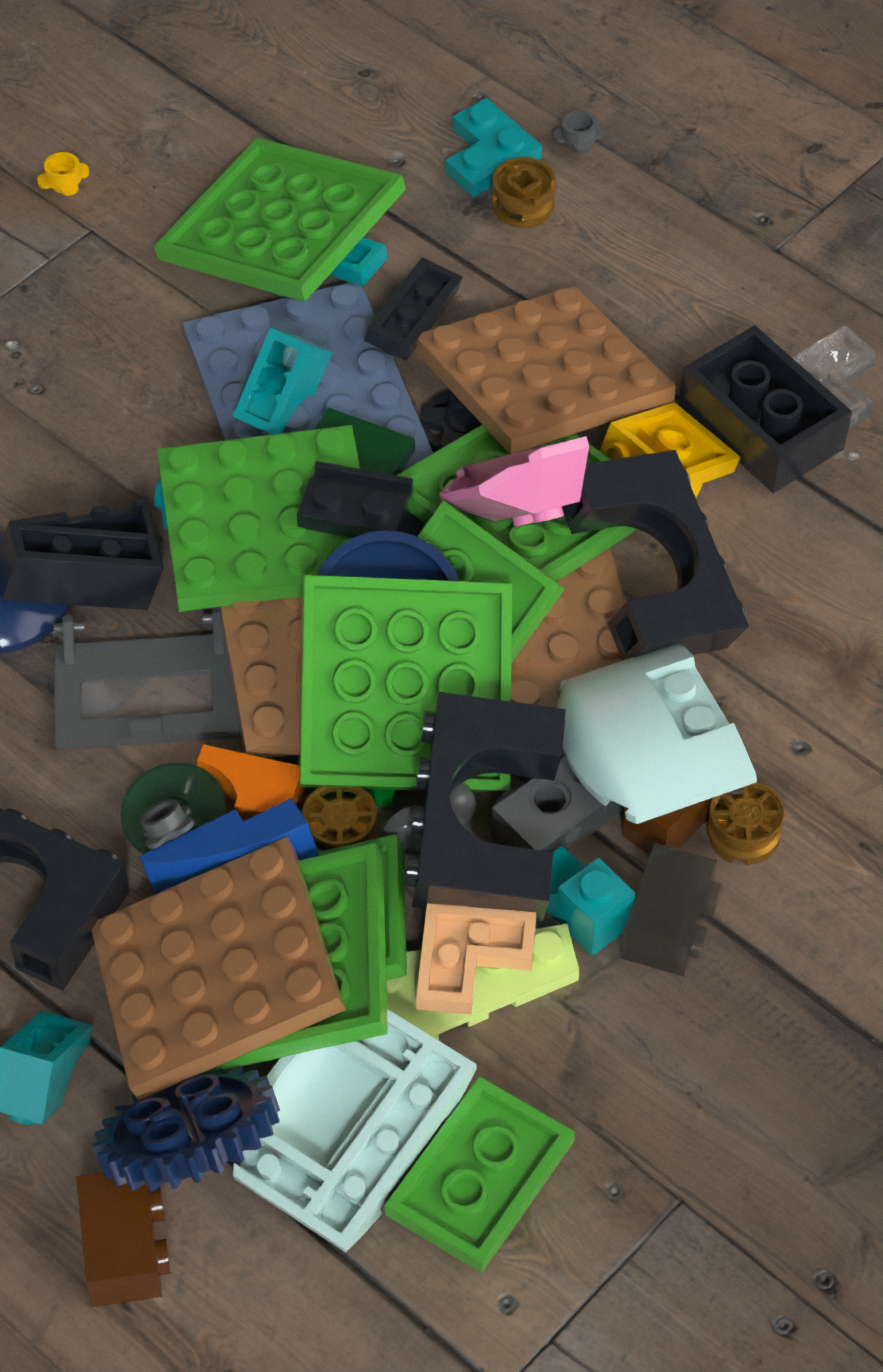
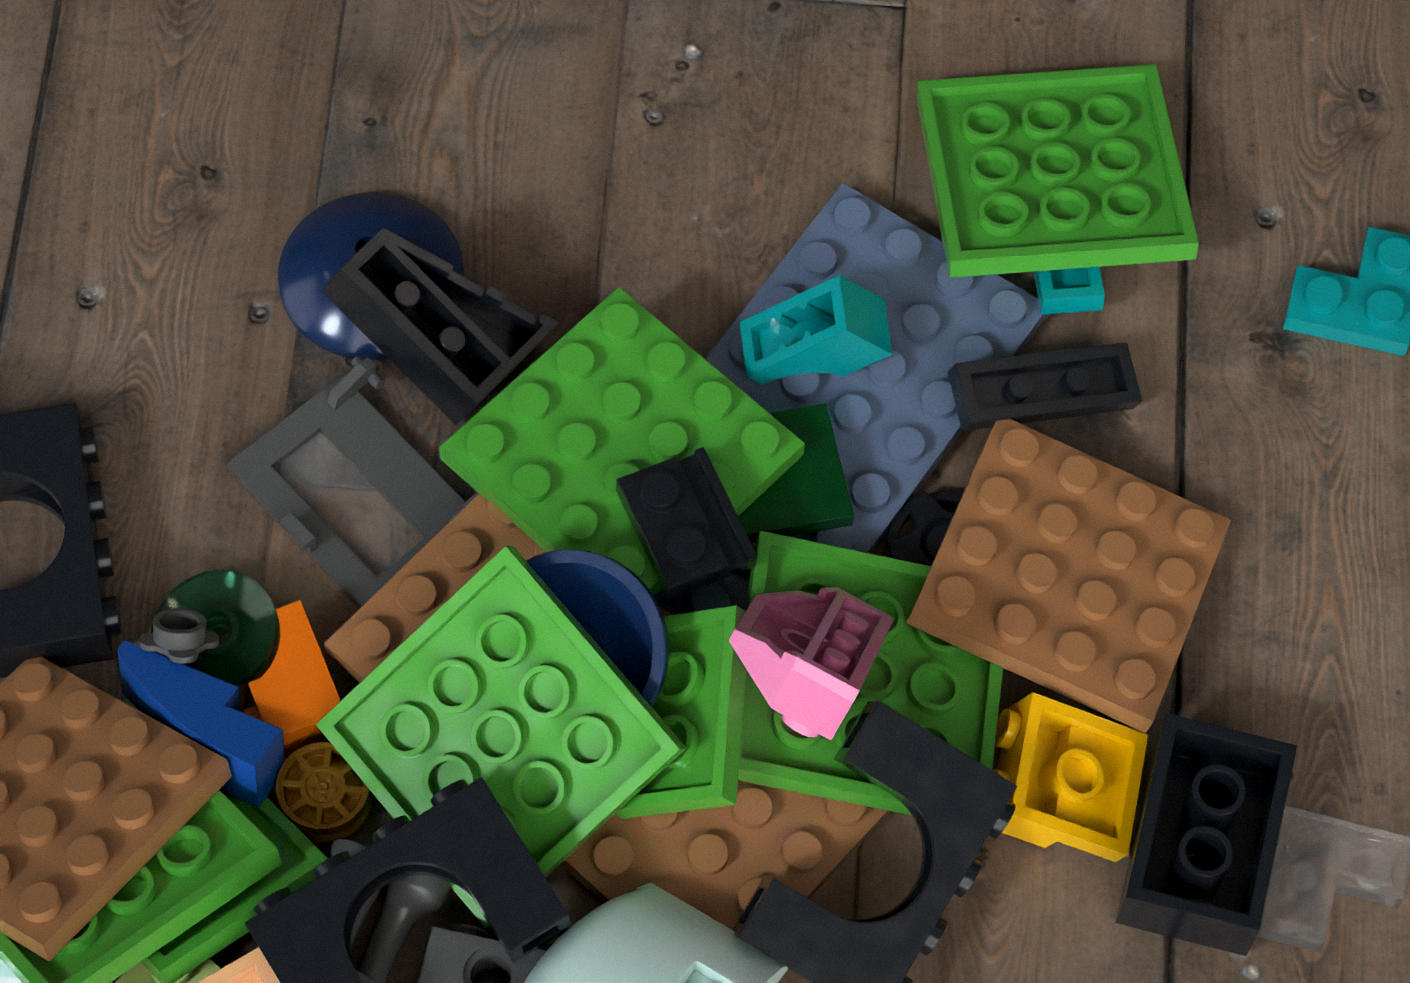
camera: 50 degrees right, 10 degrees up
(523, 188) = (1322, 373): pearl gold wheel -> none

